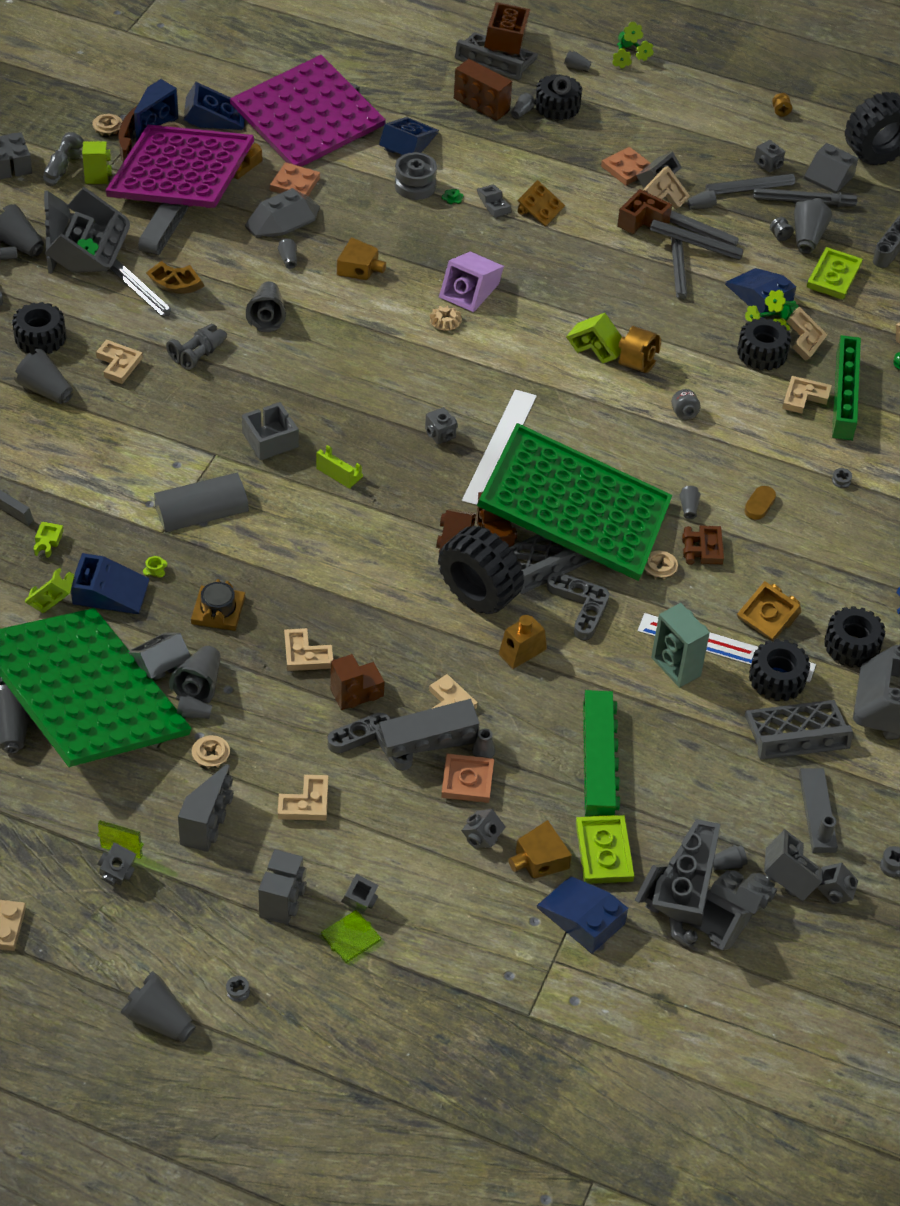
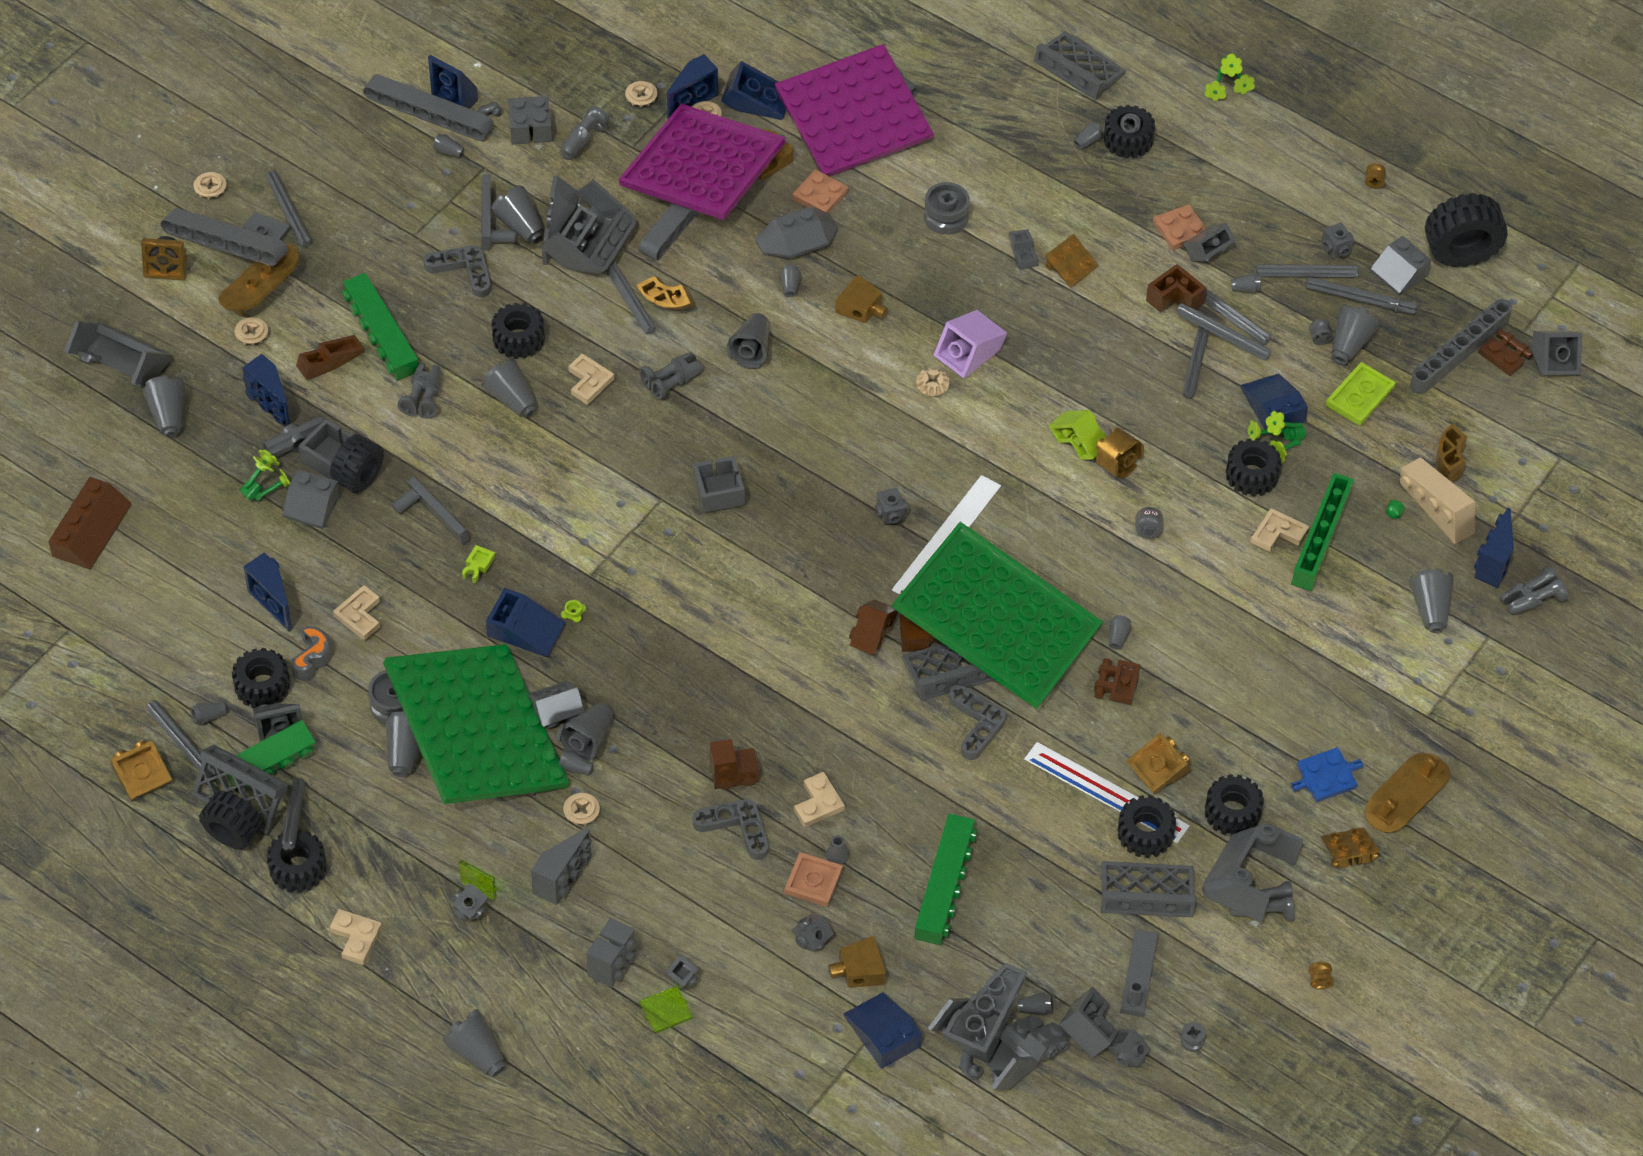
camera: 15 degrees right, 5 degrees up
(51, 592) = (468, 622): lime hinge -> none
(88, 244) = (580, 242): green plant -> none
(95, 162) = (617, 143): lime brick -> none
(125, 132) = (655, 111): reddish brown slope -> none
(201, 502) = (633, 549): dark grey brick -> none
(219, 606) = (624, 663): piece -> none
(240, 995) = (552, 1045): dark grey bush -> none
(305, 657) = (690, 727): tan plate -> none
(310, 804) = (658, 878): tan plate -> none
(337, 468) = (777, 535): lime hinge -> none
(406, 136) = (952, 156): dark blue slope -> none
(430, 729) = (787, 827): dark grey wedge -> none
(452, 196) = (982, 236): green plant -> none
(481, 569) = (879, 673): black tyre -> none
(482, 89) = (1047, 111): reddish brown brick -> none
(507, 28) = (1096, 37): reddish brown brick -> none
(522, 641) = (904, 752): pearl gold torso -> none
(577, 61) = (1164, 86): dark grey cone -> none
(604, 849) = (921, 972): lime plate -> none
(668, 185) = (1209, 261): tan plate -> none
(669, 564) = (1063, 687): tan gear -> none
(680, 644) = (1053, 784): sand green brick -> none
(760, 502) = (1191, 644): pearl gold tile -> none
(810, 334) = (1307, 462): tan plate -> none
(845, 474) = (1290, 628): dark grey bush -> none

